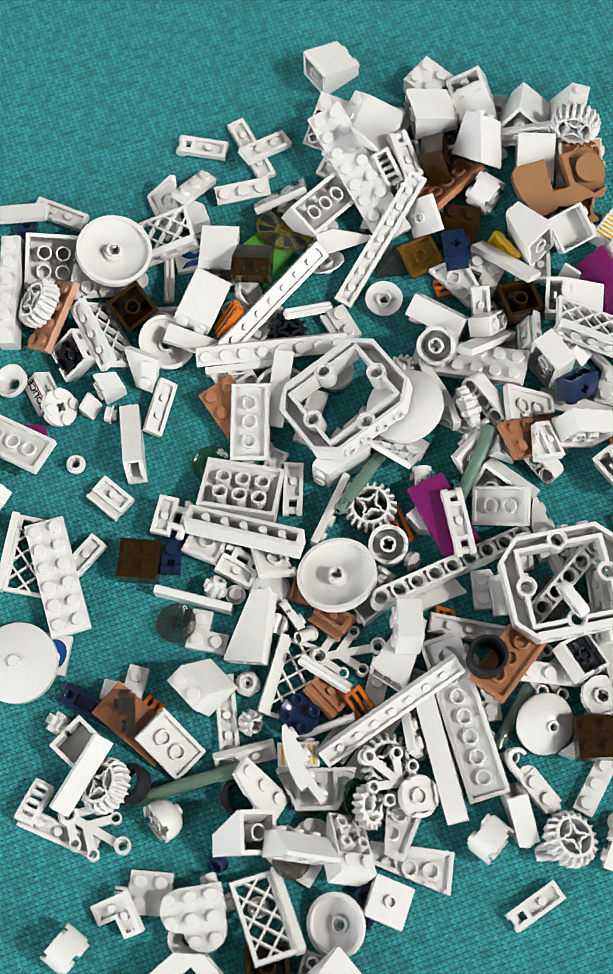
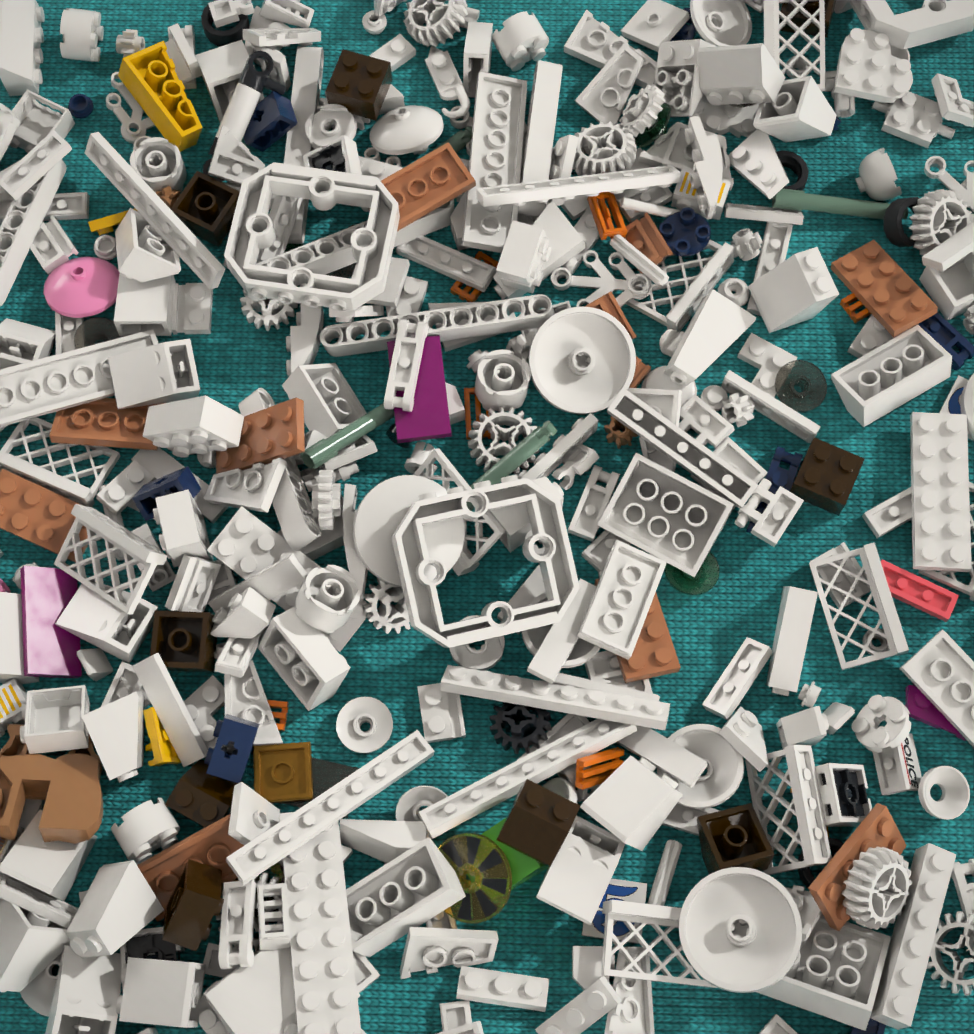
camera: 160 degrees left, 0 degrees up
(59, 505) = (919, 592): none -> coral plate
(81, 488) = (882, 598): none -> white fence
(113, 653) = (892, 375): none -> white slope
(126, 706) = (898, 278): clear smoke plate -> none
(170, 744) = (850, 250): white tile -> none
(296, 620) = (649, 338): white plate -> none
(307, 310) = (481, 740): white axle -> none
(310, 633) = (643, 317): white pin -> none
(314, 509) = (576, 462): none -> white plate
(361, 141) = (291, 962): white dish -> none
(394, 777) = (588, 106): white plant -> none
(418, 796) = (583, 97): white tile -> none
(497, 645) = (441, 169): black piece -> none
(501, 505) = (340, 377): white tile -> none
(545, 442) = (252, 409): white wing -> none
(572, 598) = (318, 199): white beam -> none

